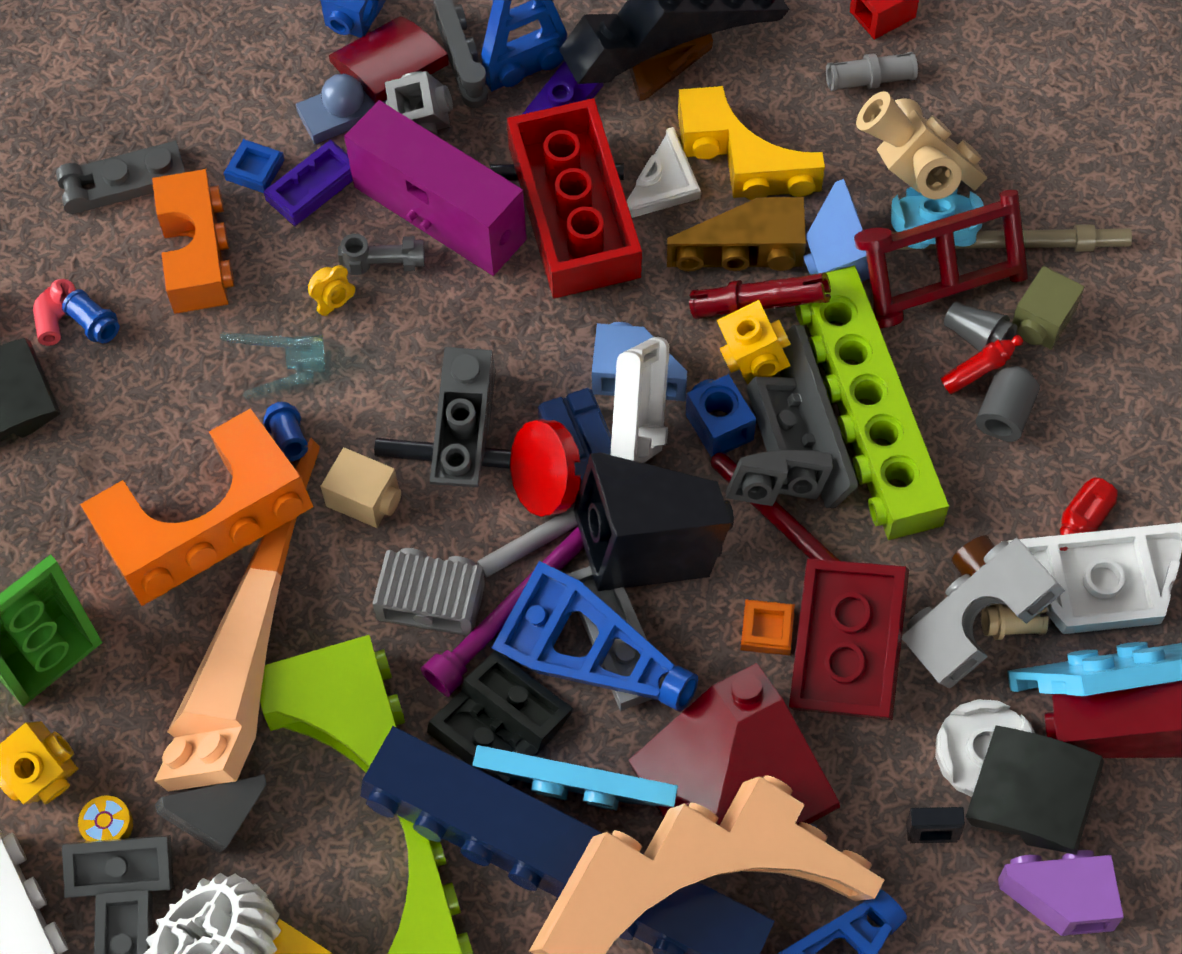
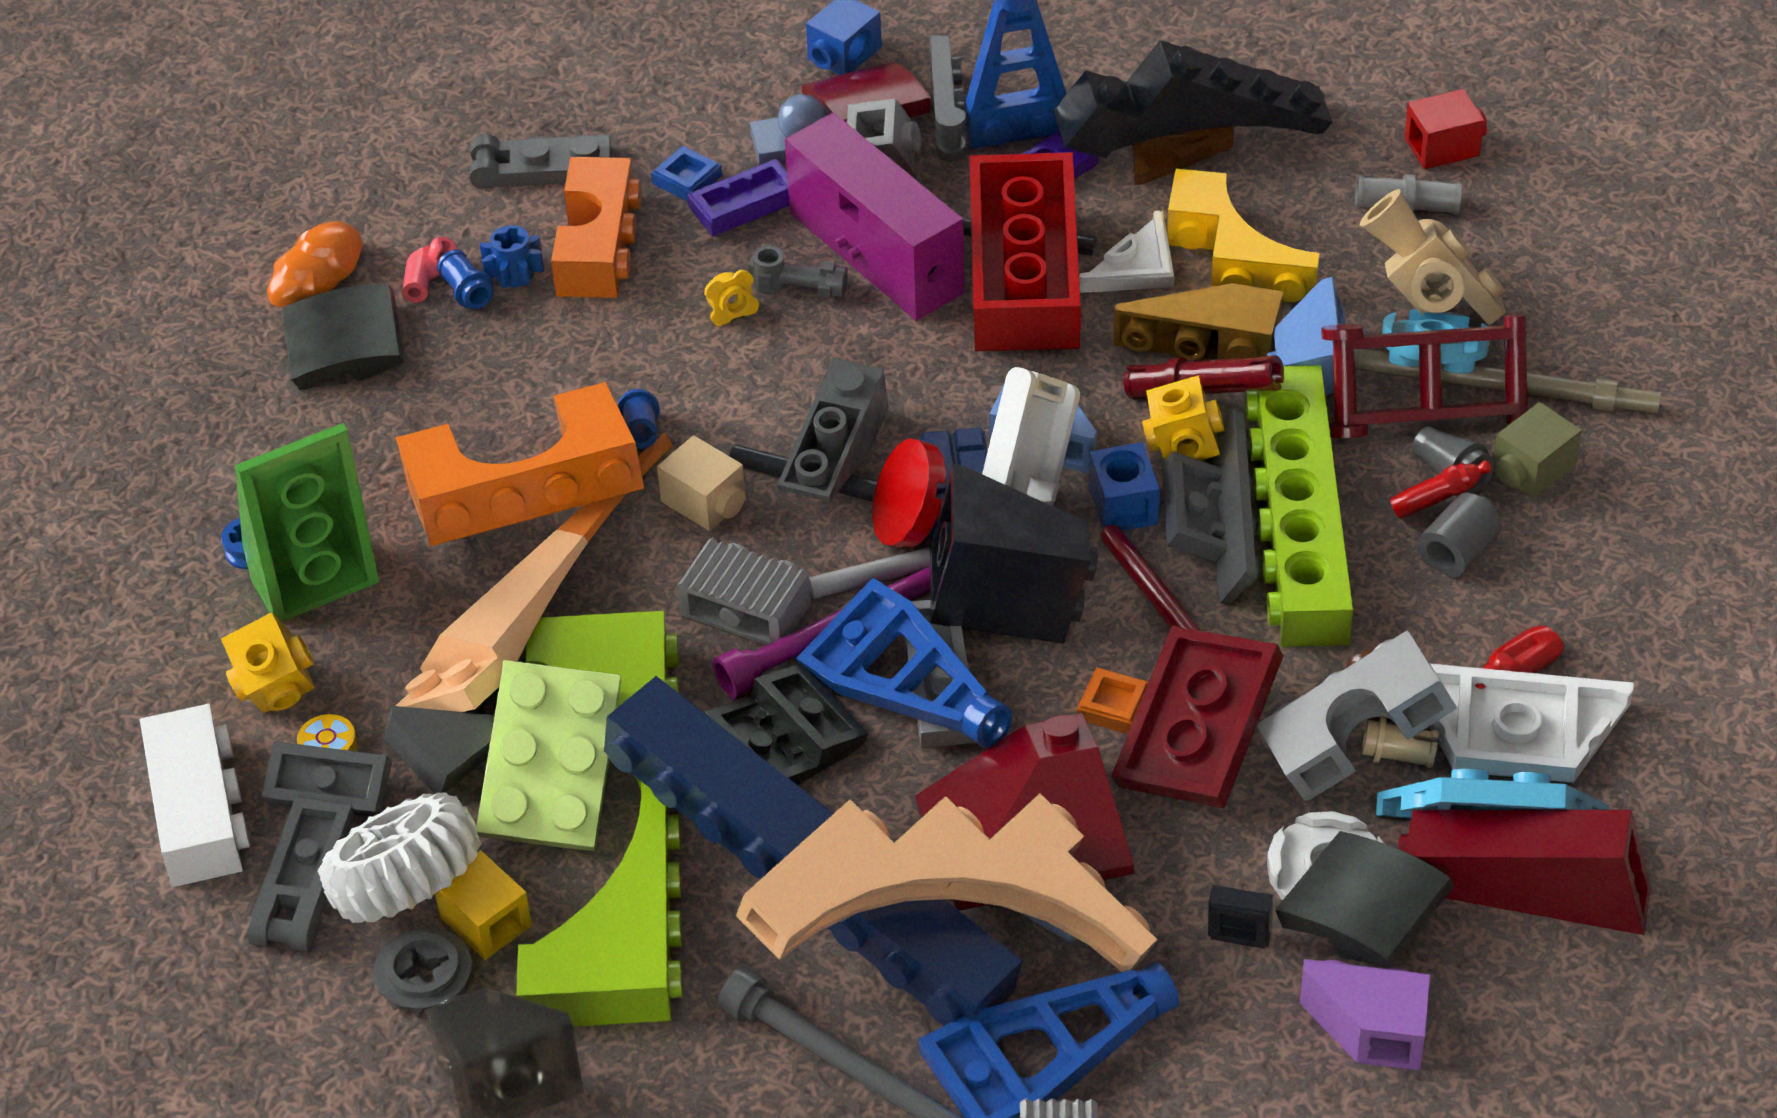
camera: 15 degrees right, 15 degrees down
(126, 286) = (512, 256): none -> blue gear
(302, 353) = (679, 348): clear light blue plant -> none
(310, 805) = (548, 756): none -> yellowish green plate
(556, 778) = (839, 776): medium azure wing -> none
(785, 472) = (1162, 544): dark grey slope -> none

